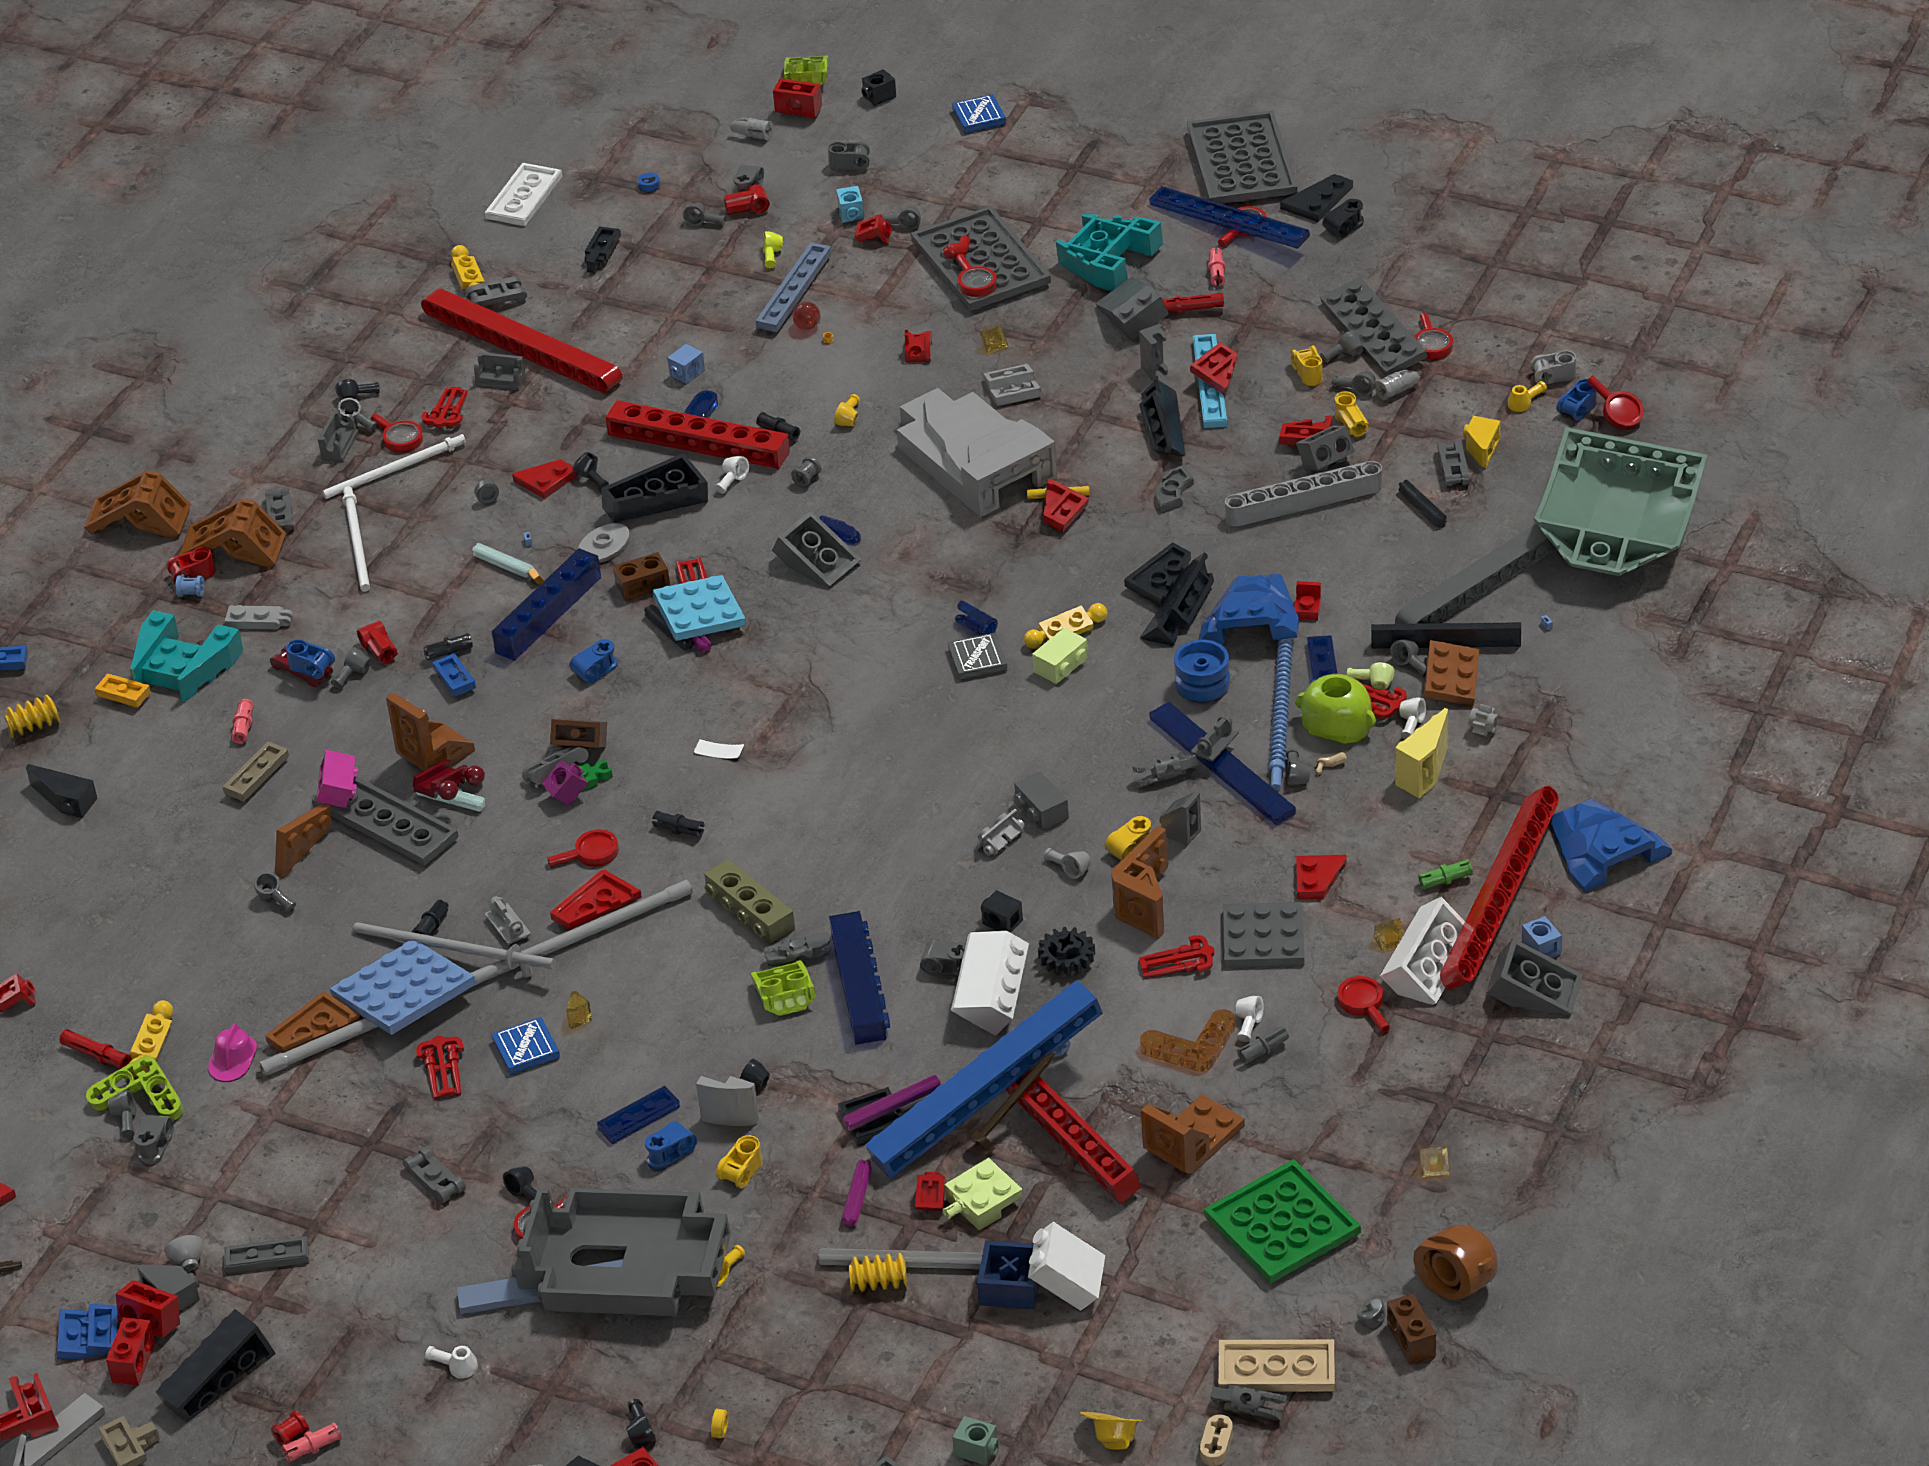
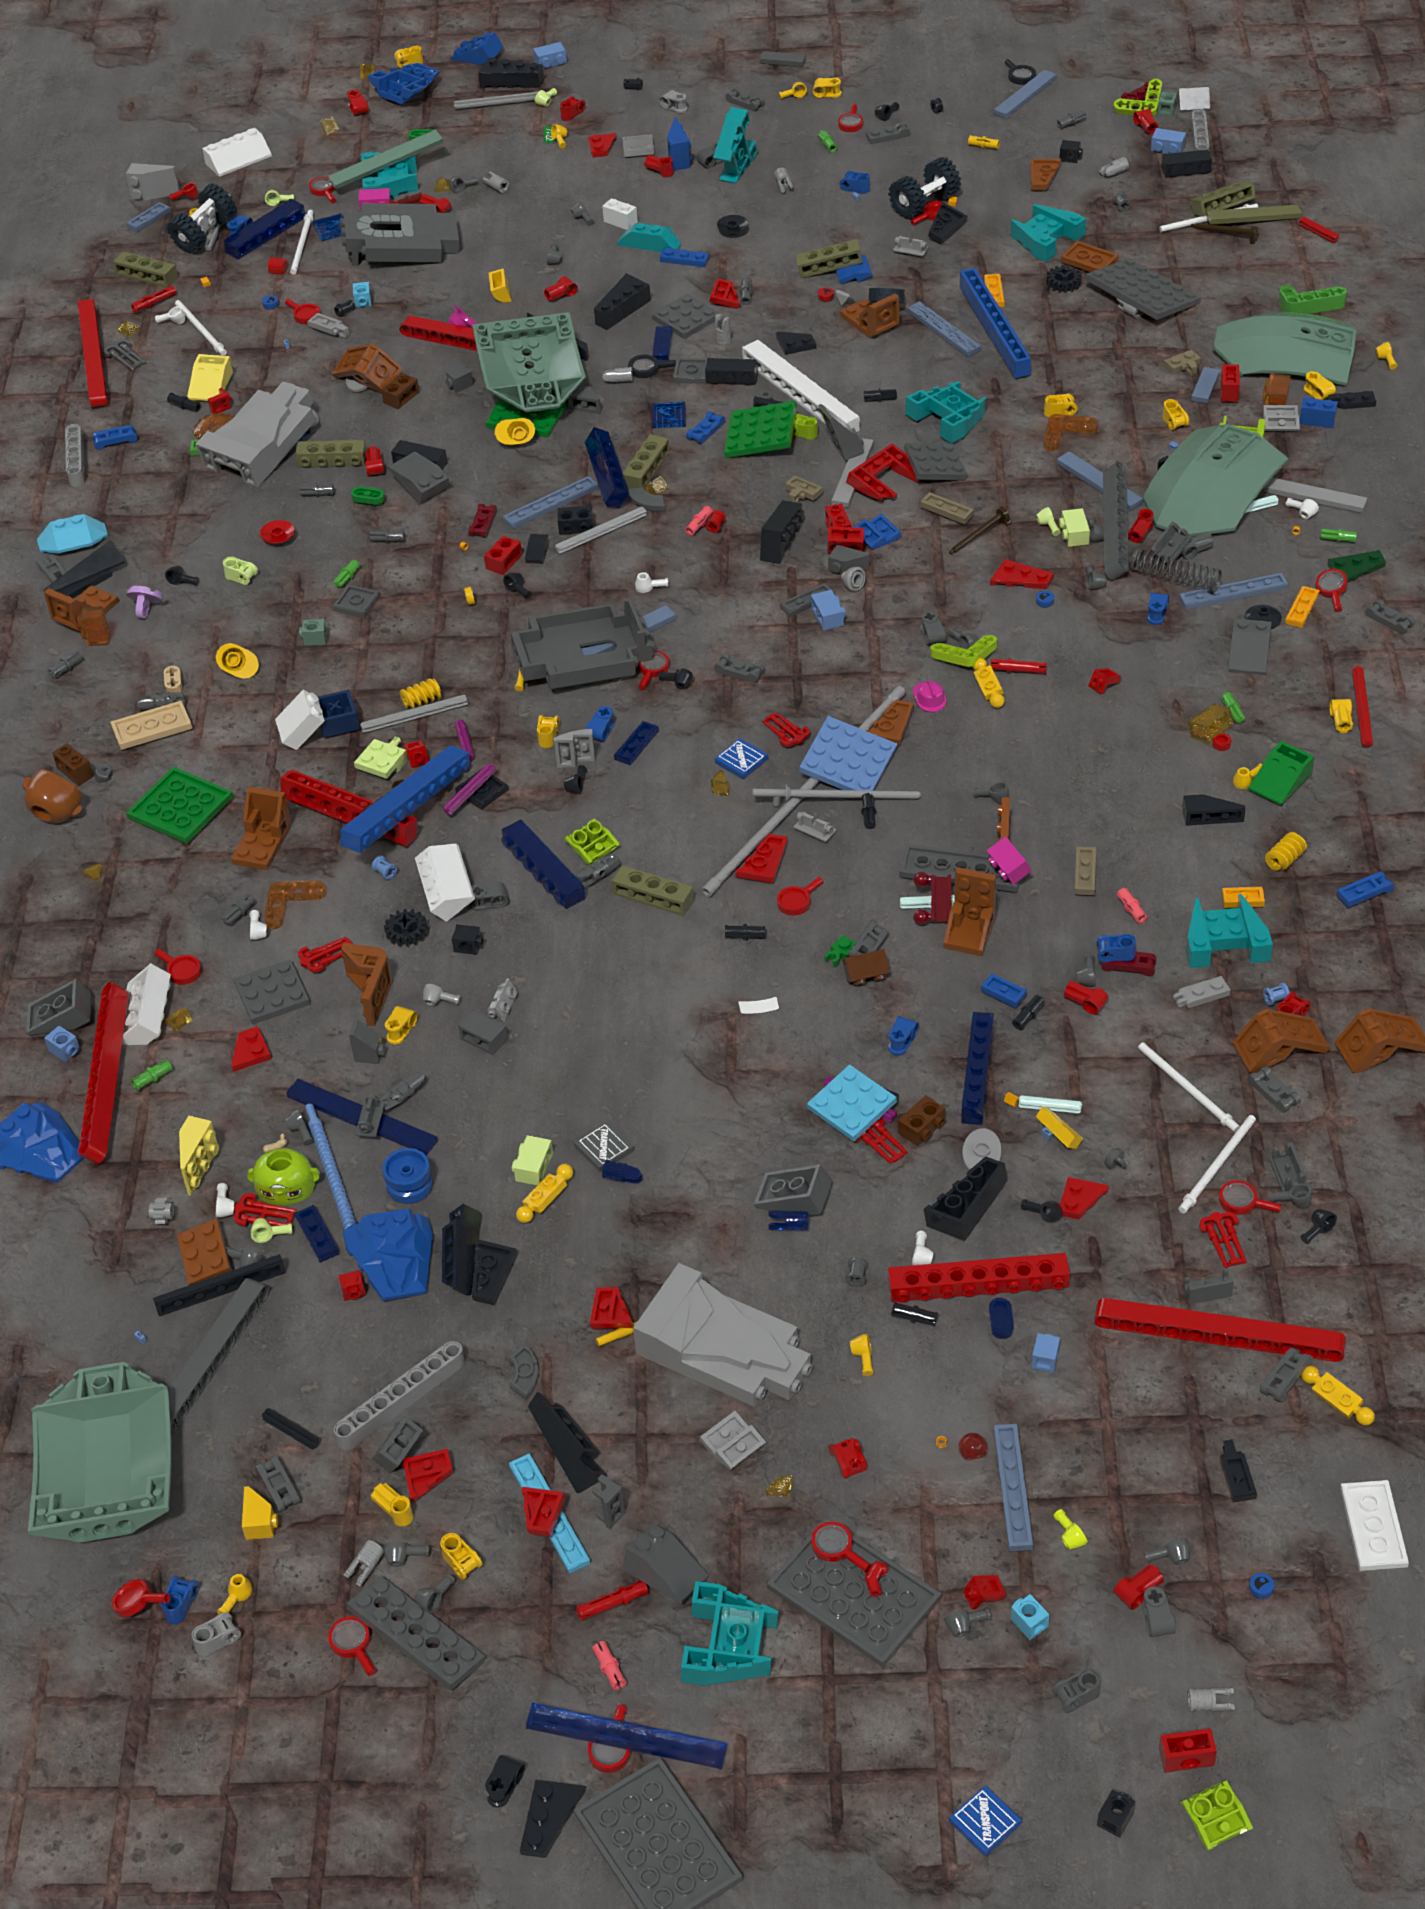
camera: 155 degrees right, 5 degrees up
(256, 1214) = (827, 609): none -> medium blue brick
(514, 531) = (1059, 1128): none -> yellow piece
(565, 782) = (846, 925): magenta brick -> none

